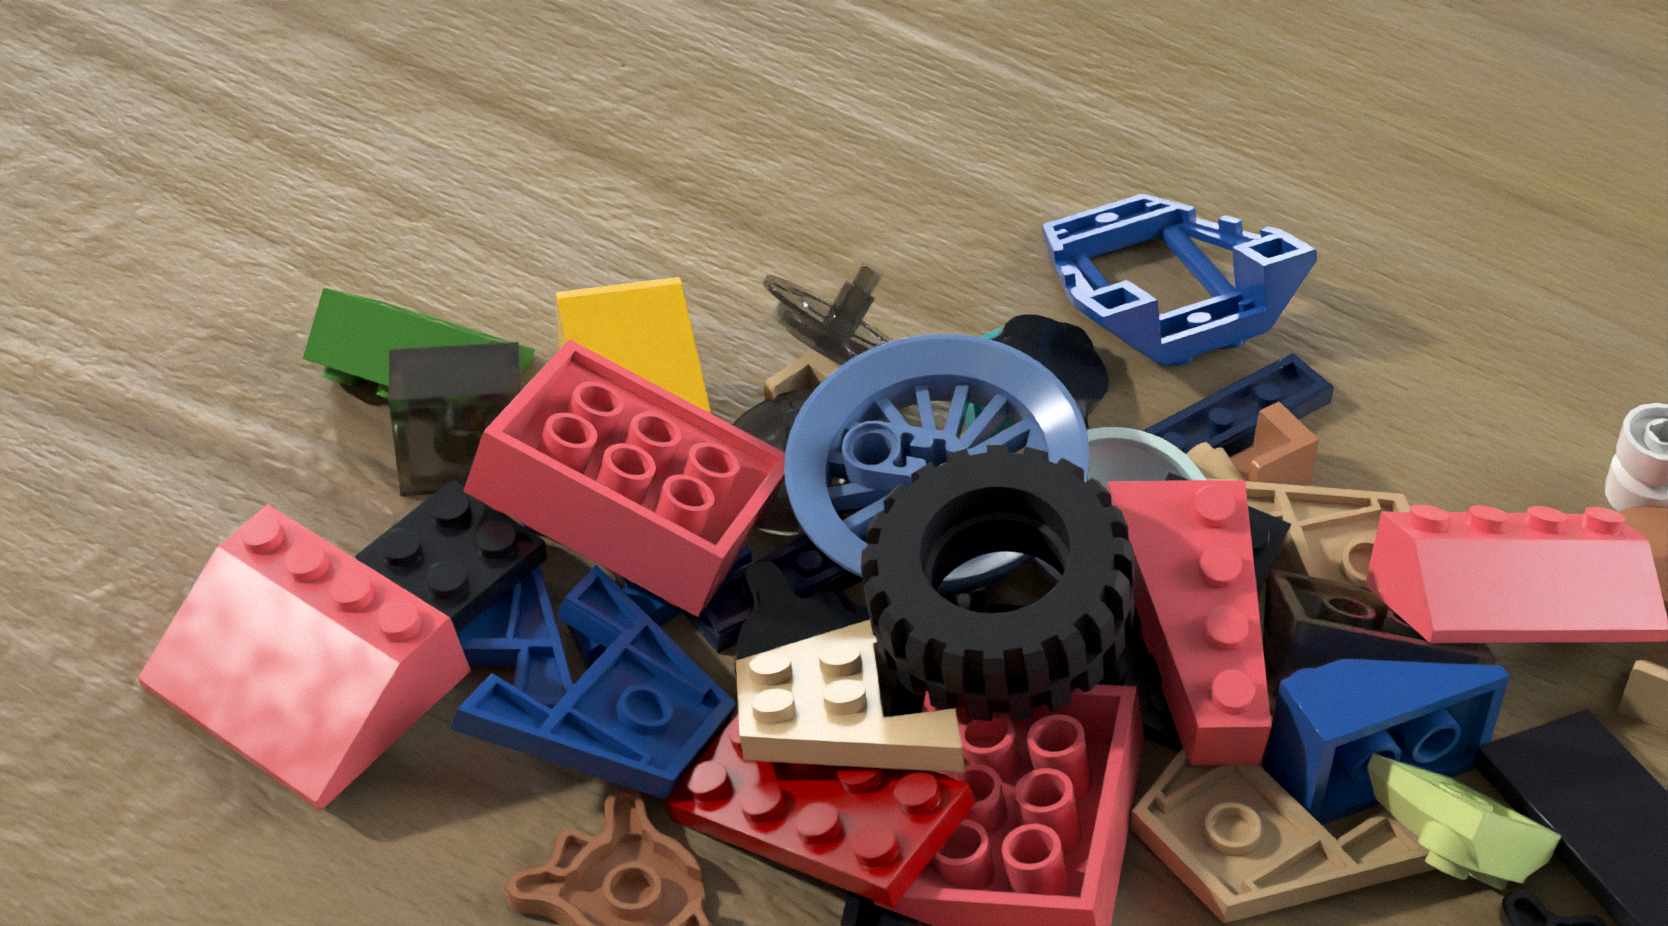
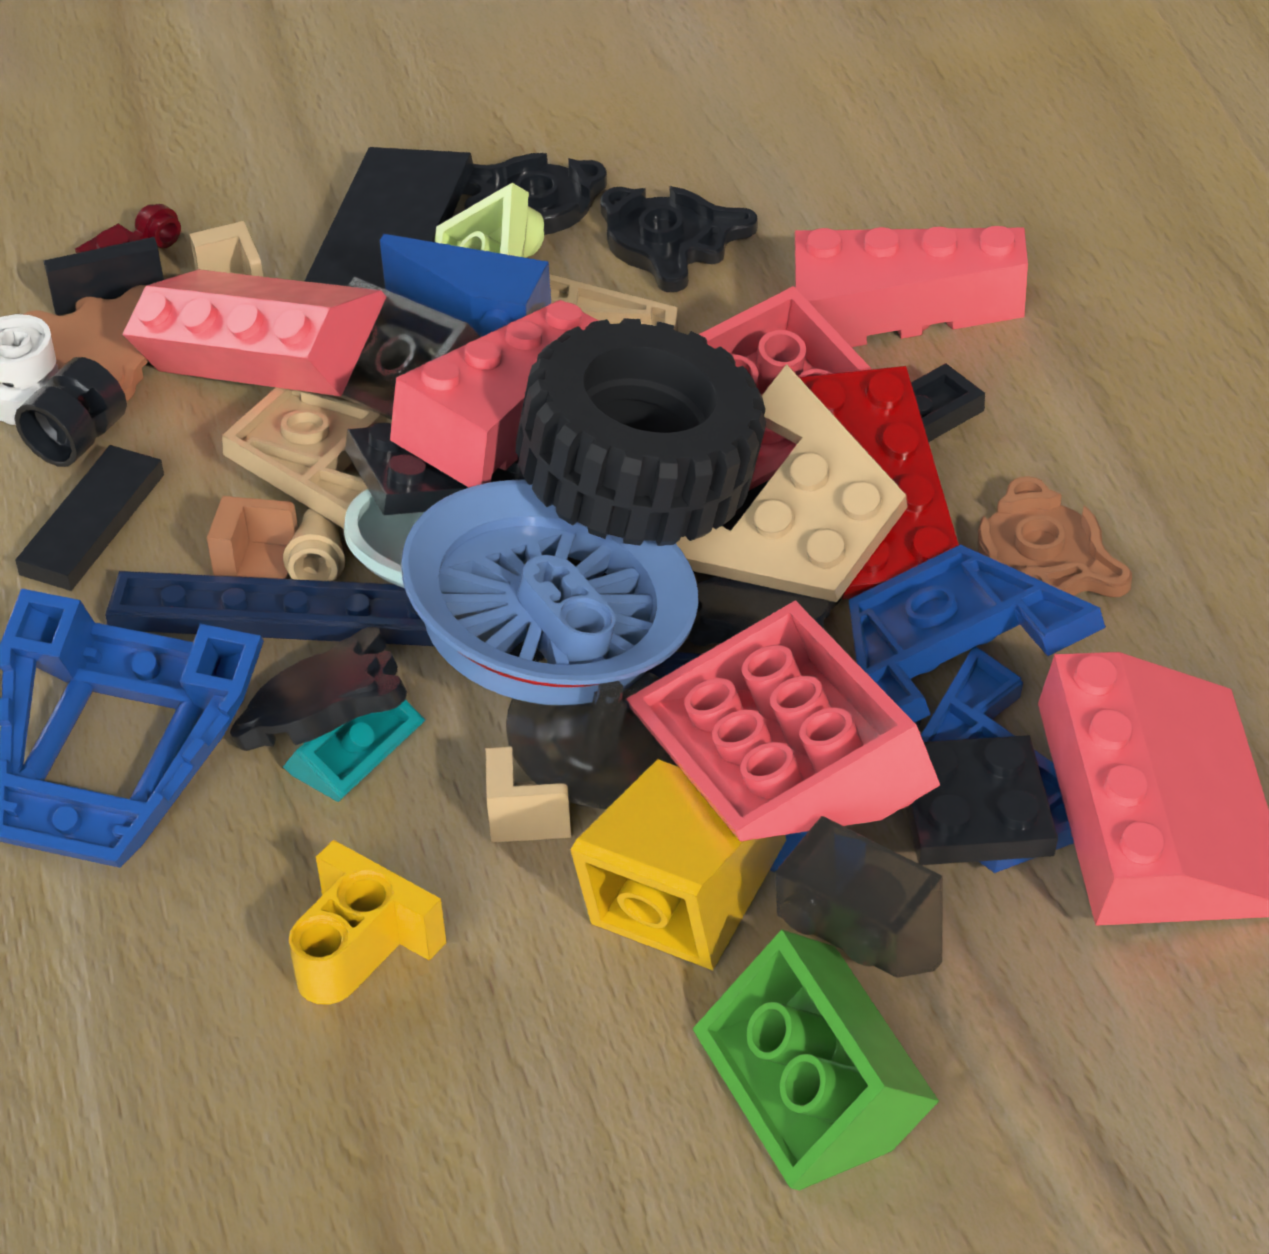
camera: 135 degrees left, 0 degrees up
(824, 252) = (359, 924): none -> yellow tile
(826, 326) = (447, 803): clear smoke piece -> none
(1428, 422) = (89, 517): none -> black tile
(1561, 457) = (70, 411): none -> black wheel

